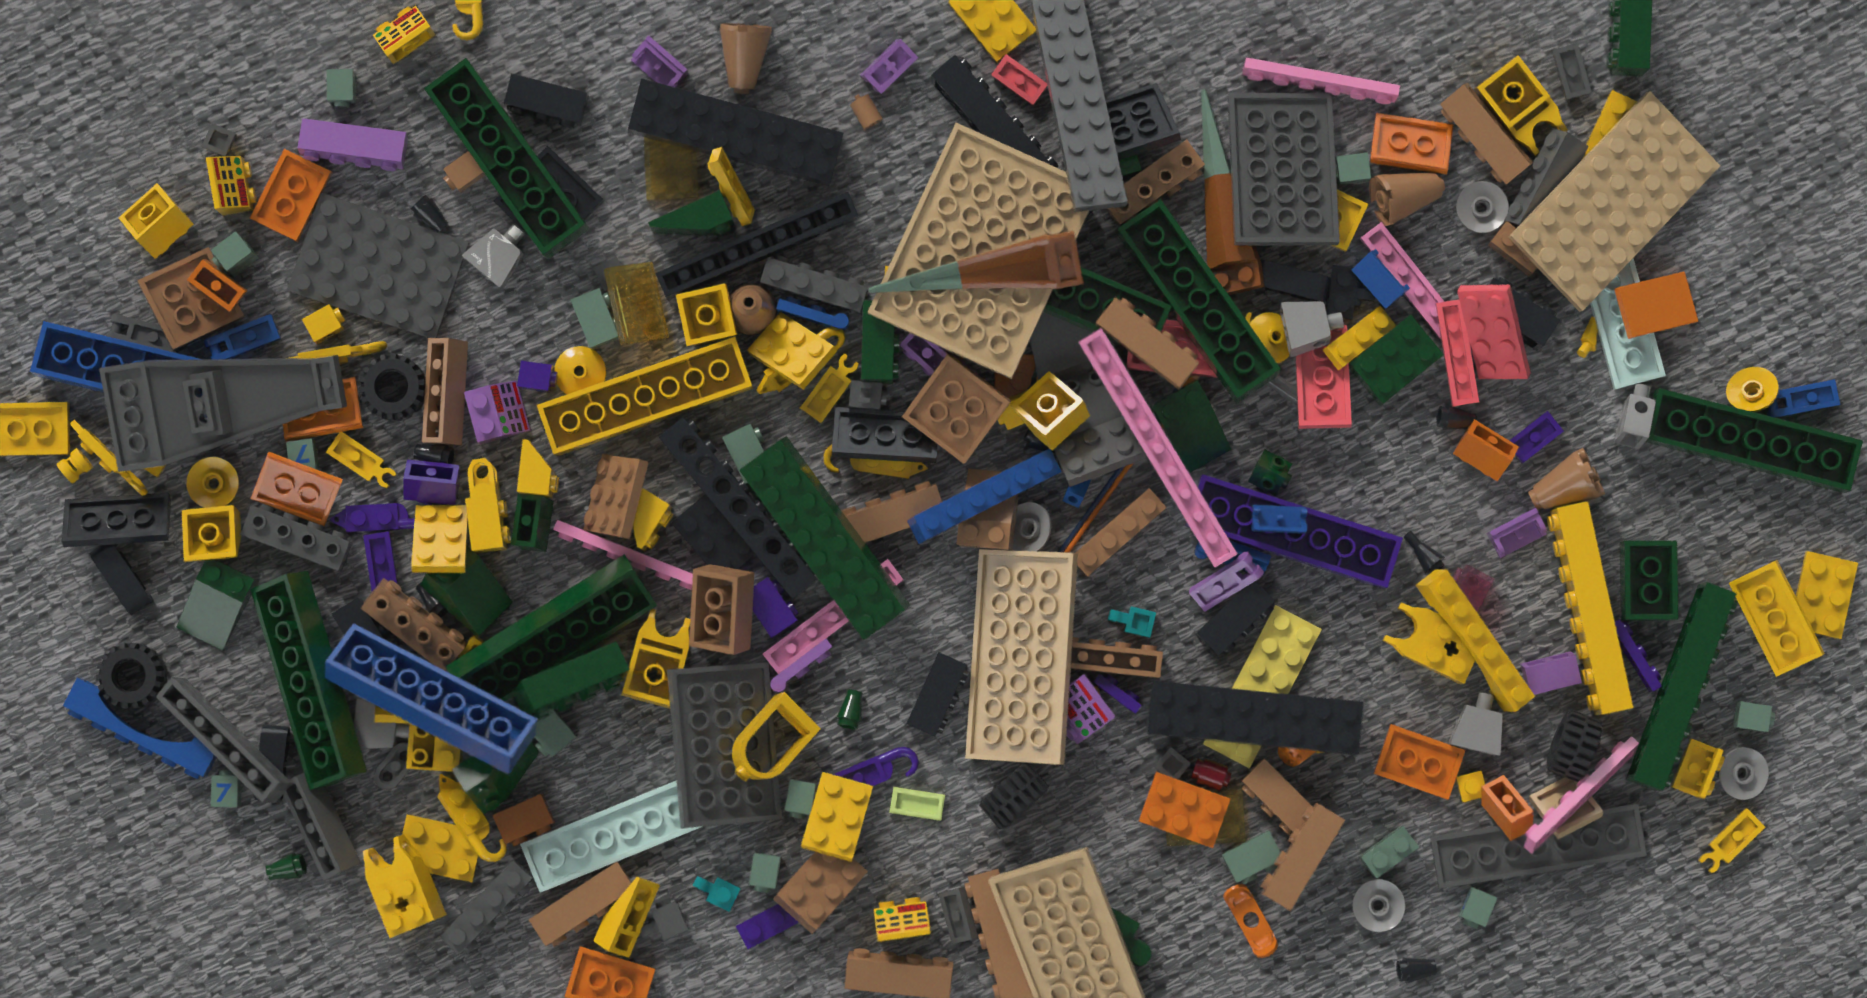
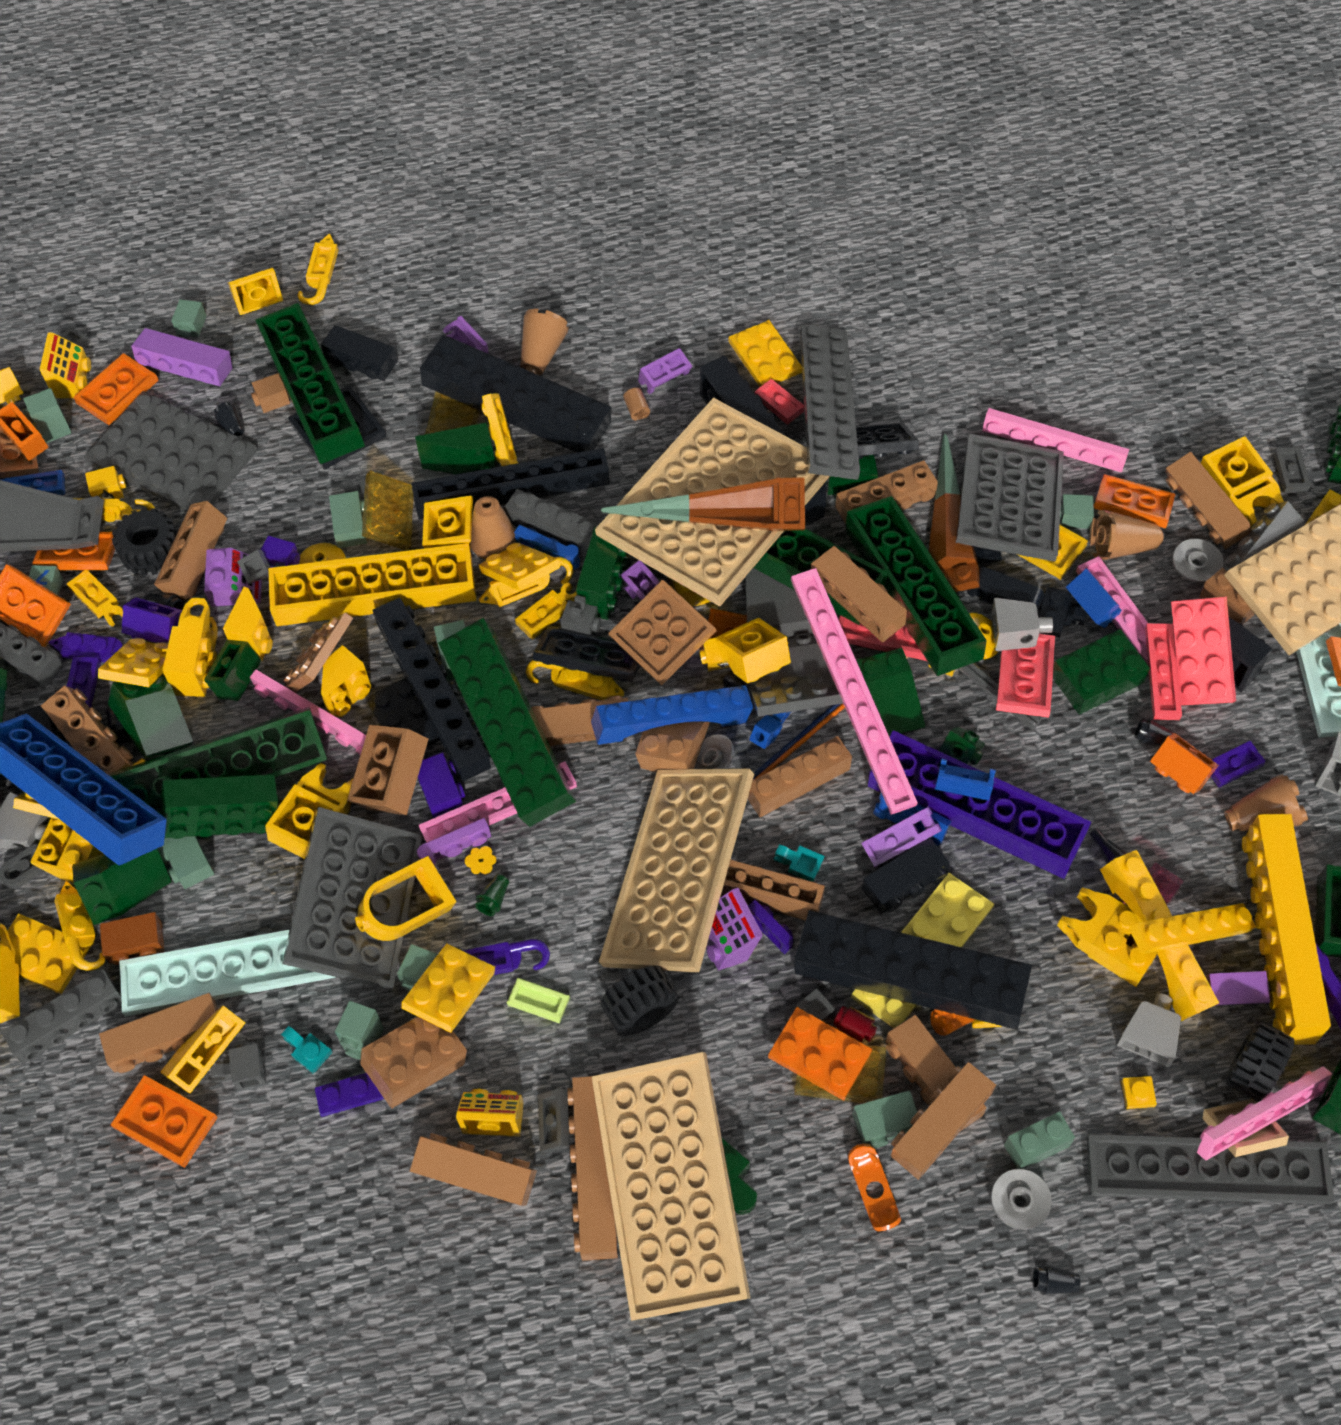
camera: 15 degrees right, 25 degrees down
(496, 255) = (276, 458): light grey torso -> none
(519, 401) = (254, 566): none -> dark grey plate
(822, 678) = (477, 854): none -> yellow plant
(938, 695) = (584, 895): black brick -> none
(1359, 338) = (1059, 645): yellow plate -> none
(1419, 762) = (1083, 1055): orange plate -> none
(1477, 908) = (1134, 1223): sand green brick -> none
(1505, 633) = (1192, 928): none -> yellow plate
(1507, 807) = (1178, 1113): orange brick -> none
(1517, 533) = (1210, 847): medium lavender hinge -> none
(1589, 339) = (1295, 688): yellow bar -> none

